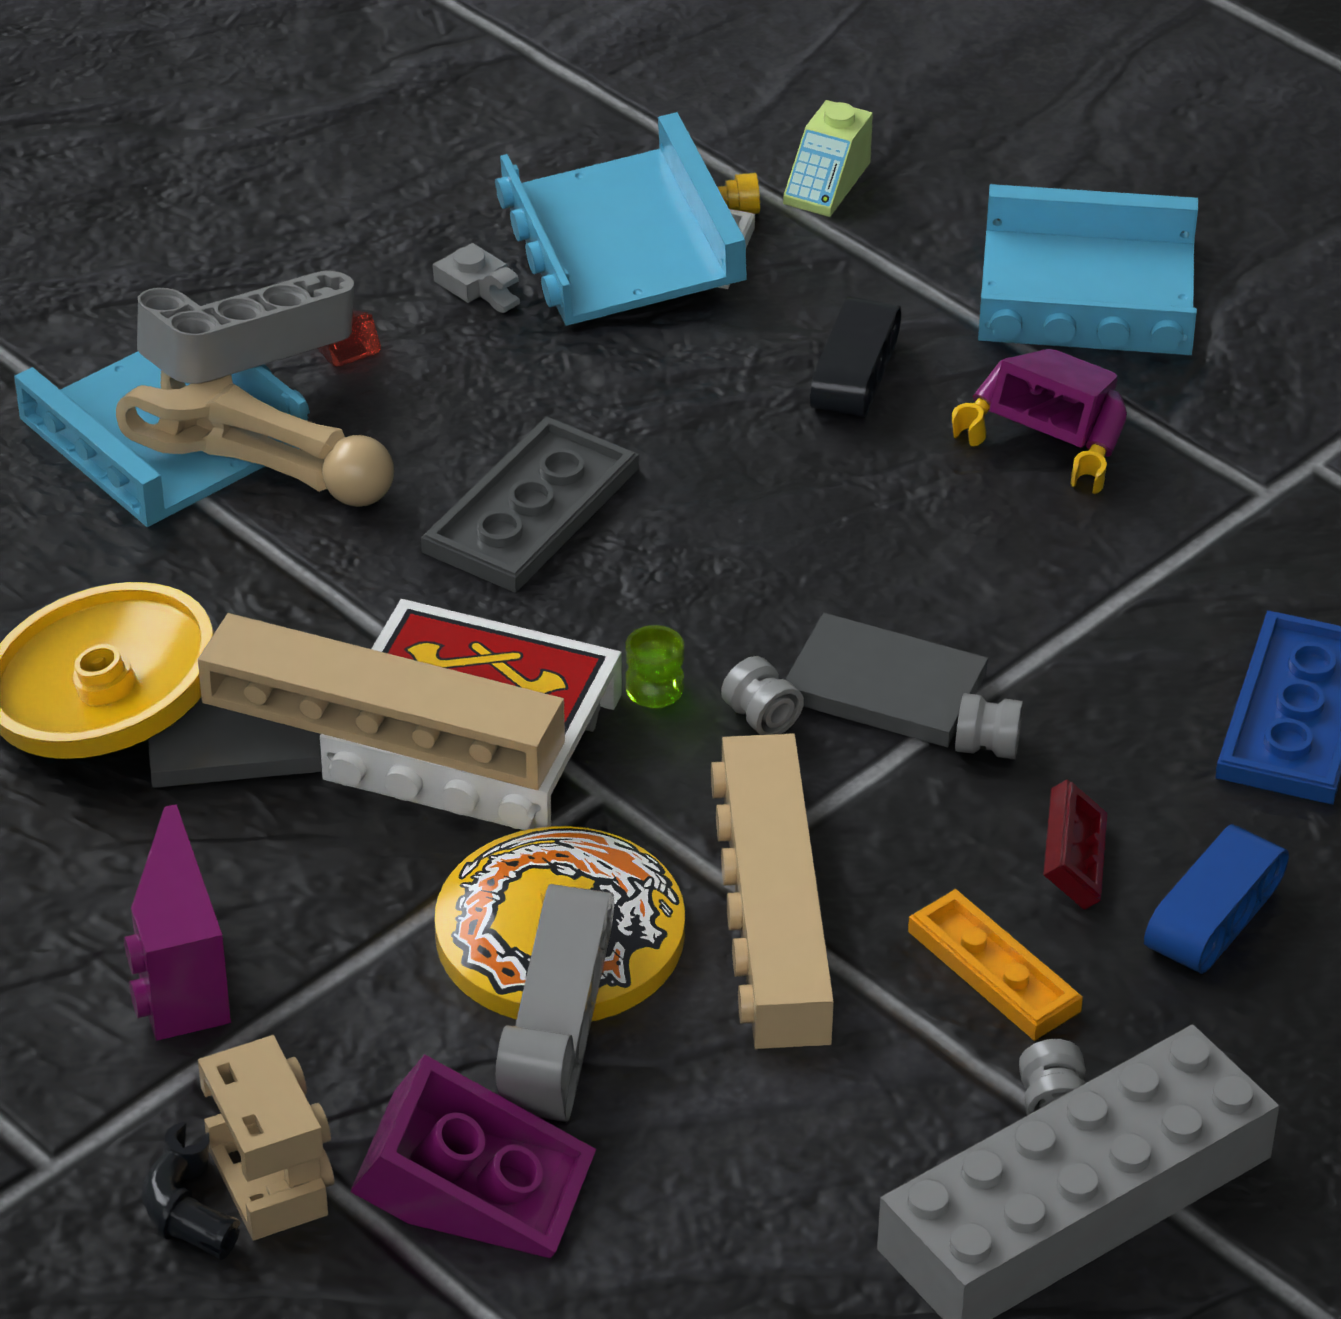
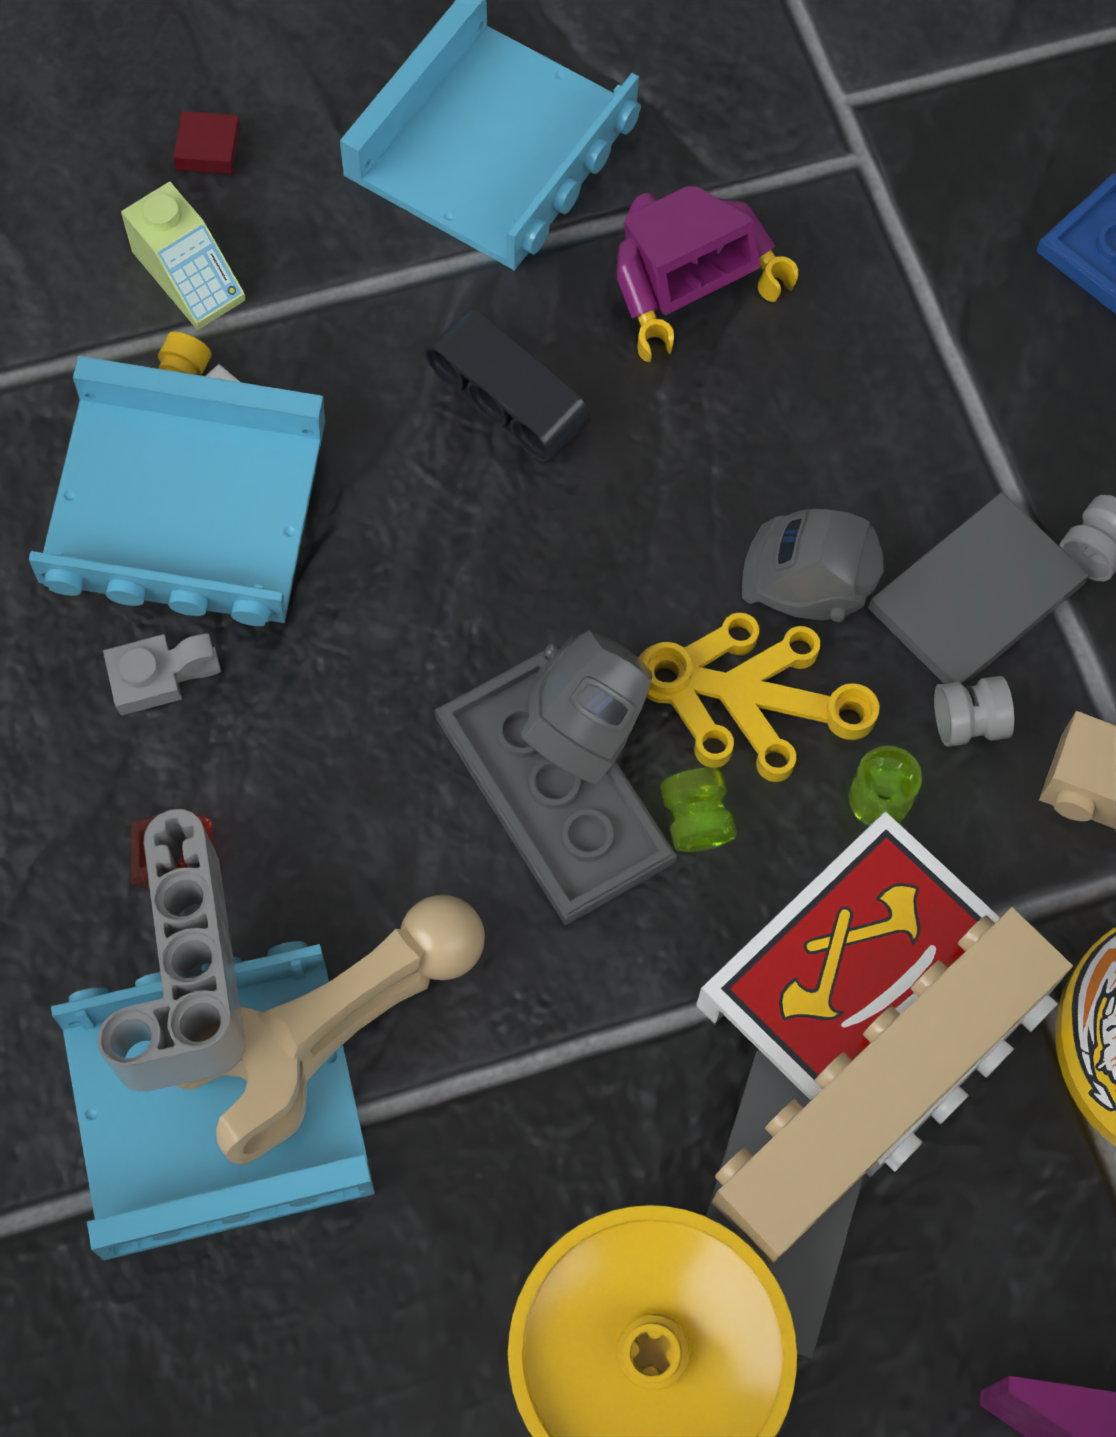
camera: 65 degrees left, 25 degrees up
(556, 573) = (698, 810): none -> clear neon green wheel
(597, 473) = (585, 704): none -> dark grey helmet
(676, 528) = (744, 692): none -> yellow plant
(829, 568) = (813, 564): none -> dark grey helmet
(948, 144) = (207, 142): none -> dark red tile

